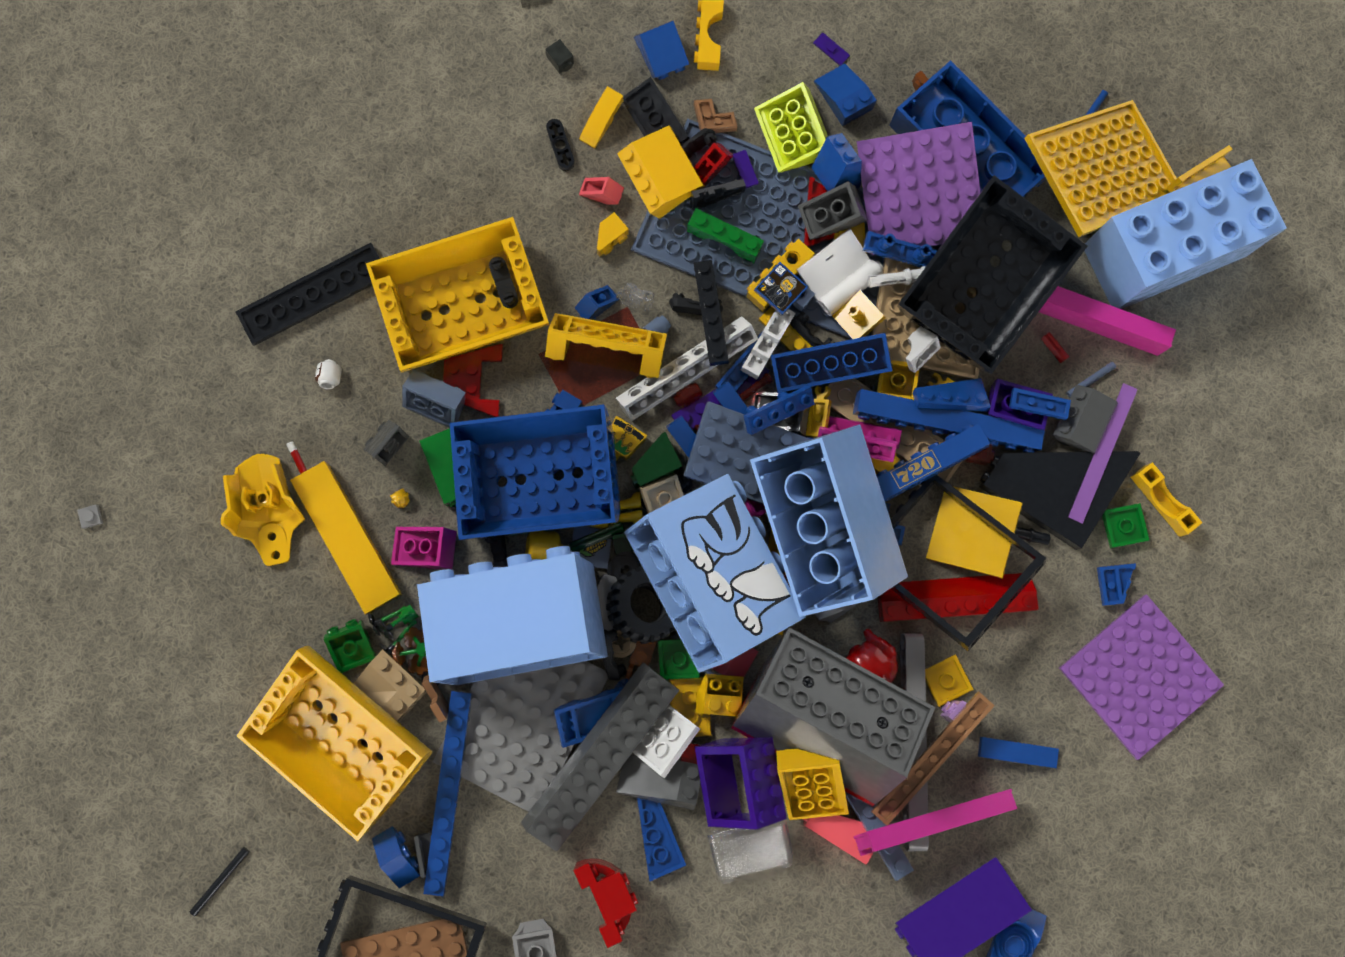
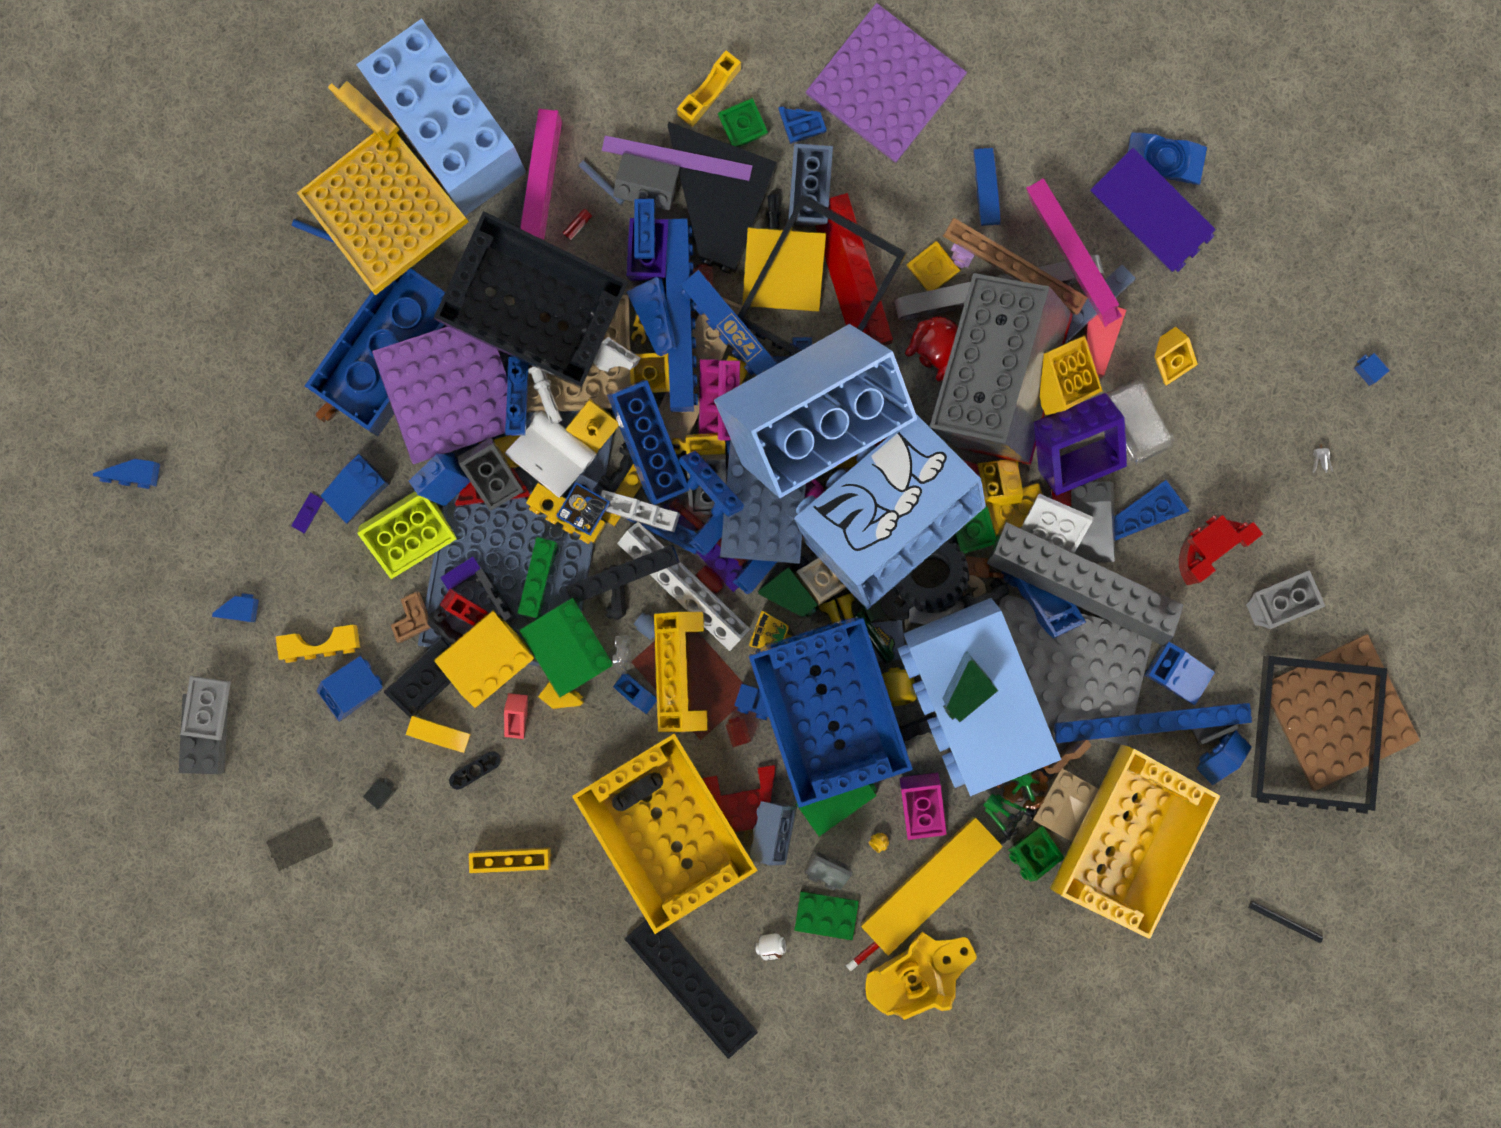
camera: 90 degrees left, 5 degrees up
(344, 433) = (826, 915): none -> green plate
(469, 155) = (510, 860): none -> yellow brick
(490, 832) = (1179, 673): none -> slope
(518, 600) = (967, 689): none -> dark green slope
(537, 389) = (738, 732): none -> clear red brick
(653, 245) = (566, 647): none -> green slope
(809, 904) = (1174, 355): none -> yellow slope
(1057, 577) = (811, 178): none -> sand blue slope

